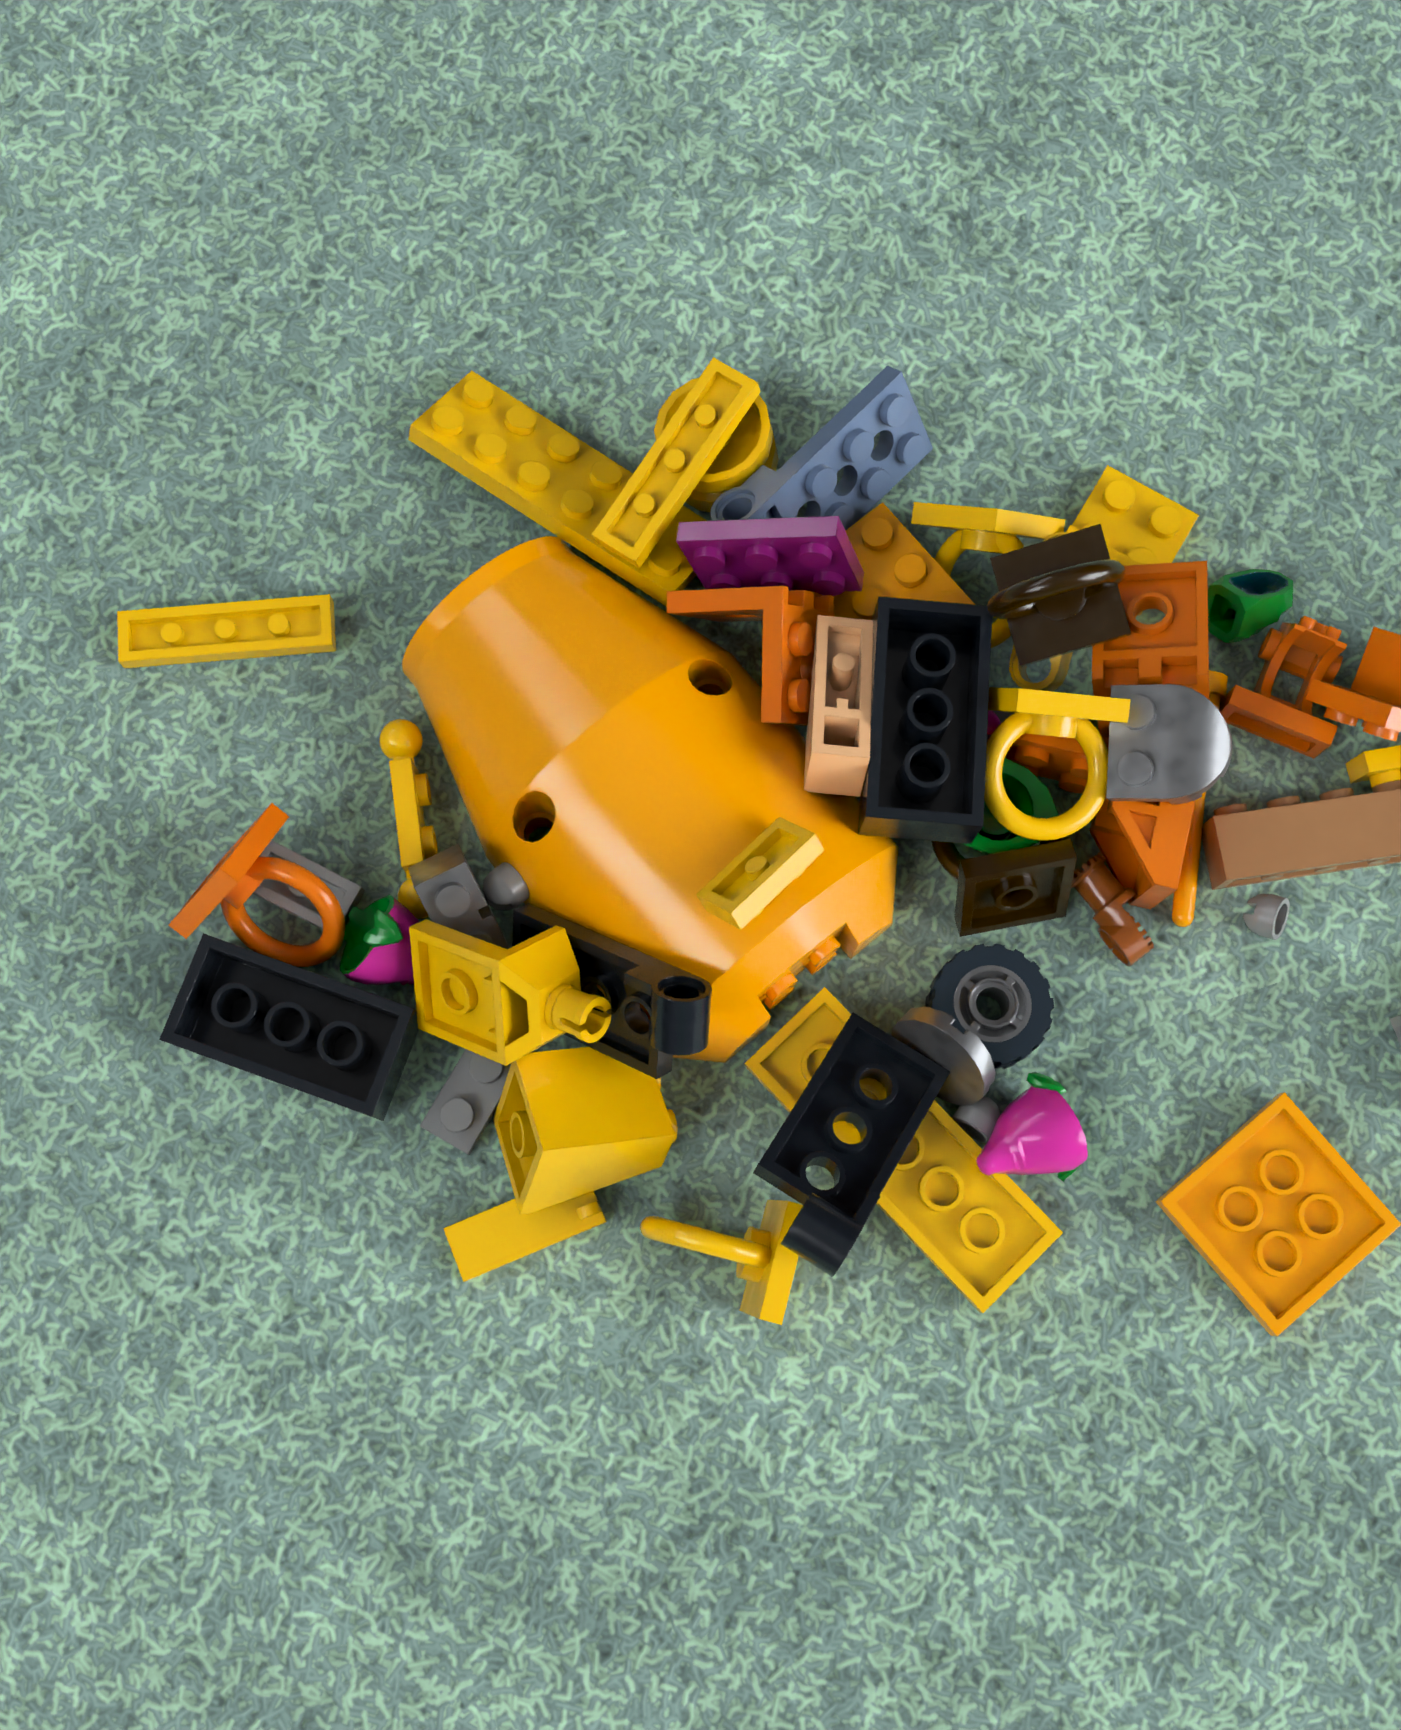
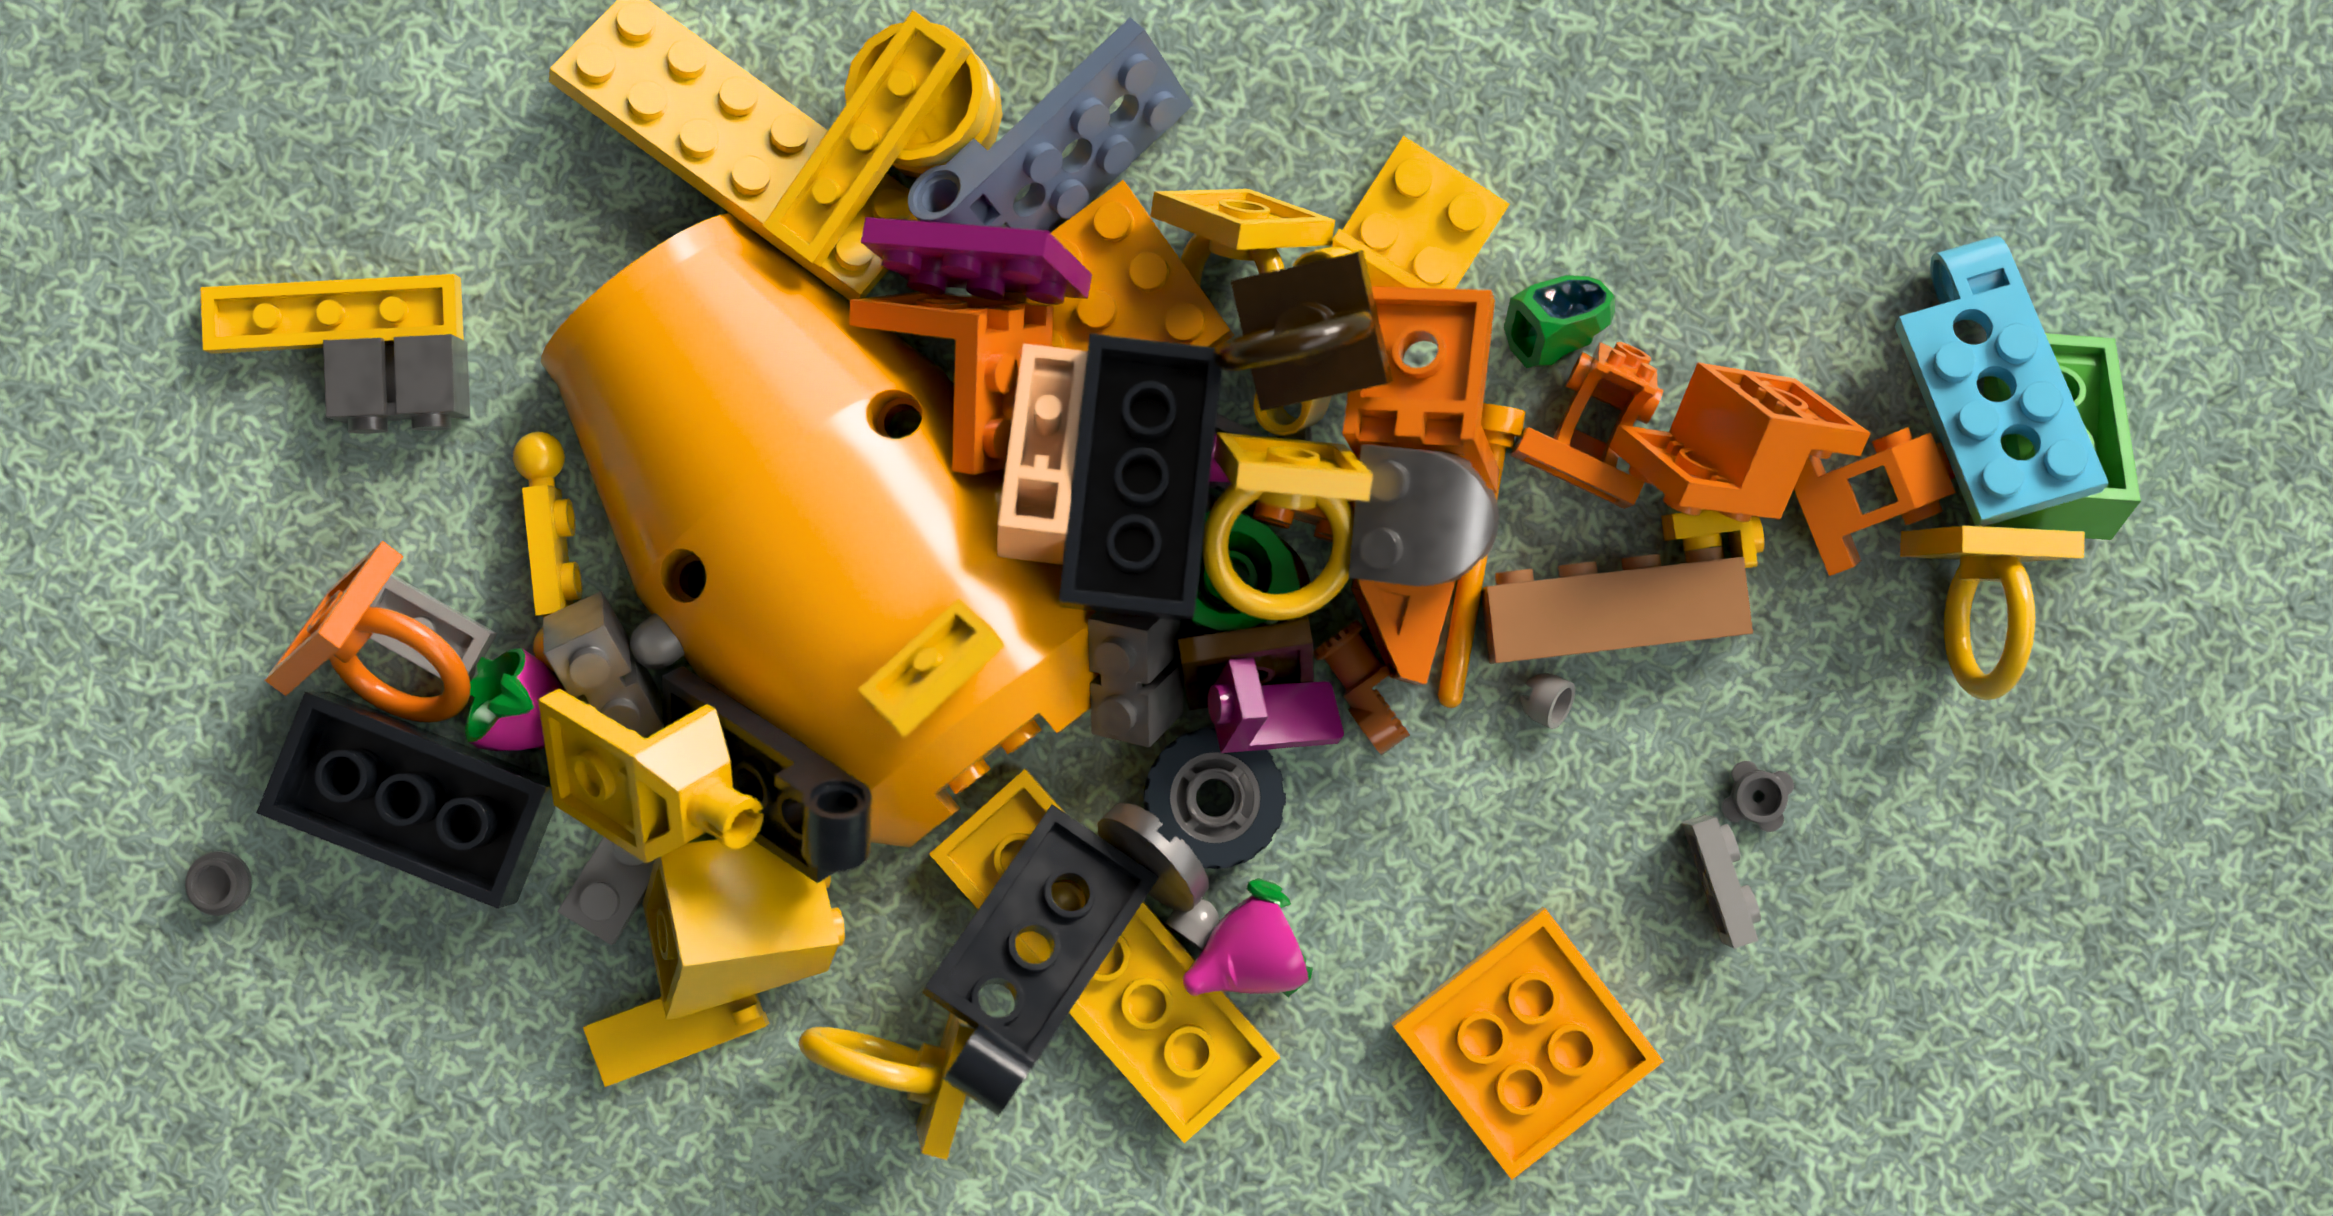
camera: 10 degrees right, 10 degrees up
(121, 1112) = (218, 883): none -> flat silver plate
(258, 694) = (403, 380): none -> flat silver piece
(913, 874) = (1126, 654): none -> flat silver piece
(1027, 931) = (1271, 715): none -> magenta bracket

